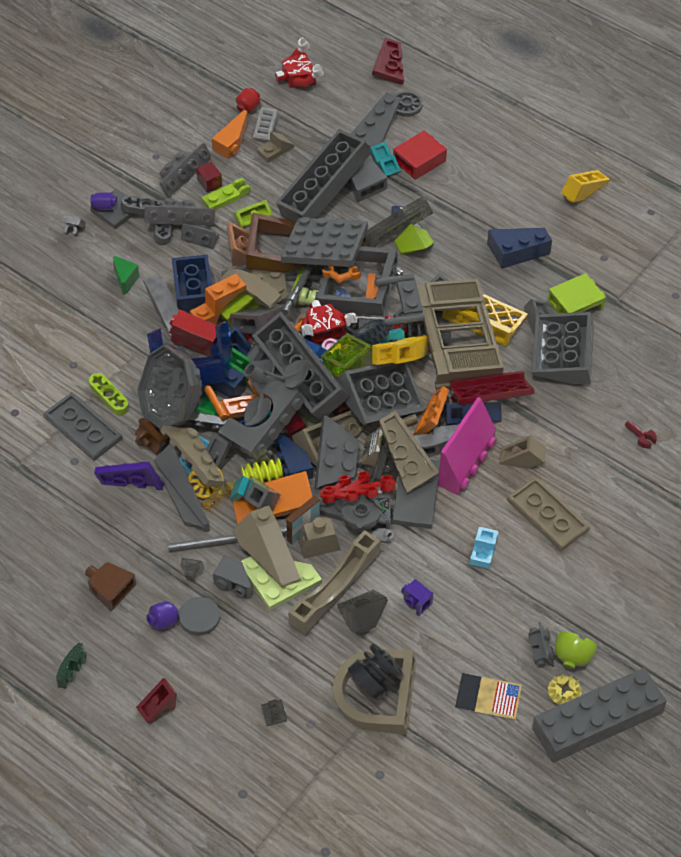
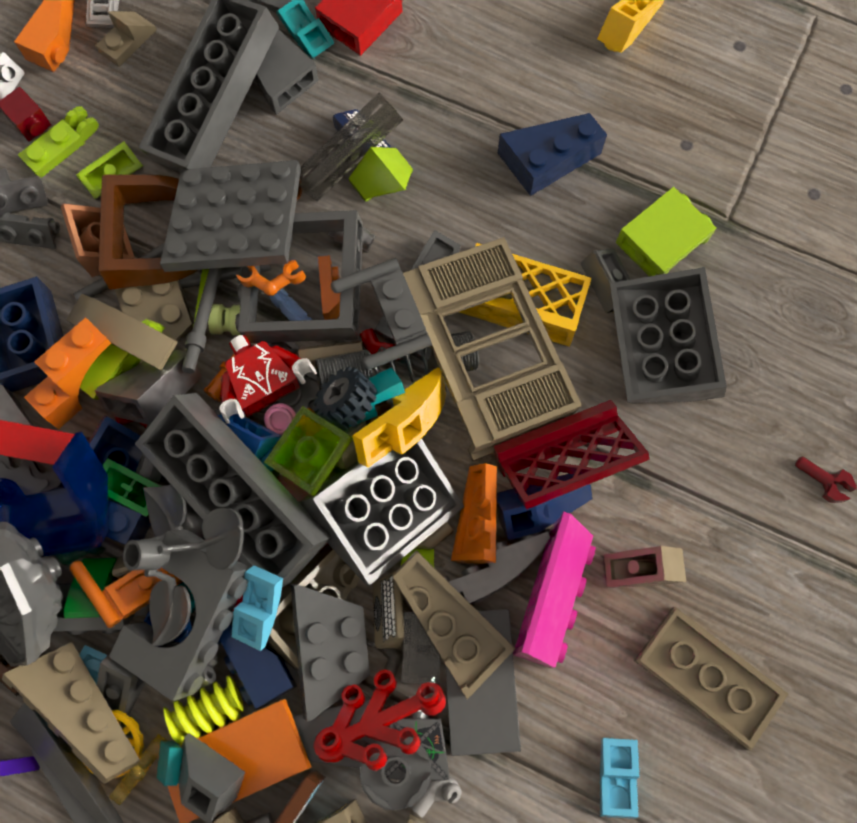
camera: 10 degrees left, 20 degrees up
(304, 420) = (257, 611): none -> medium azure slope

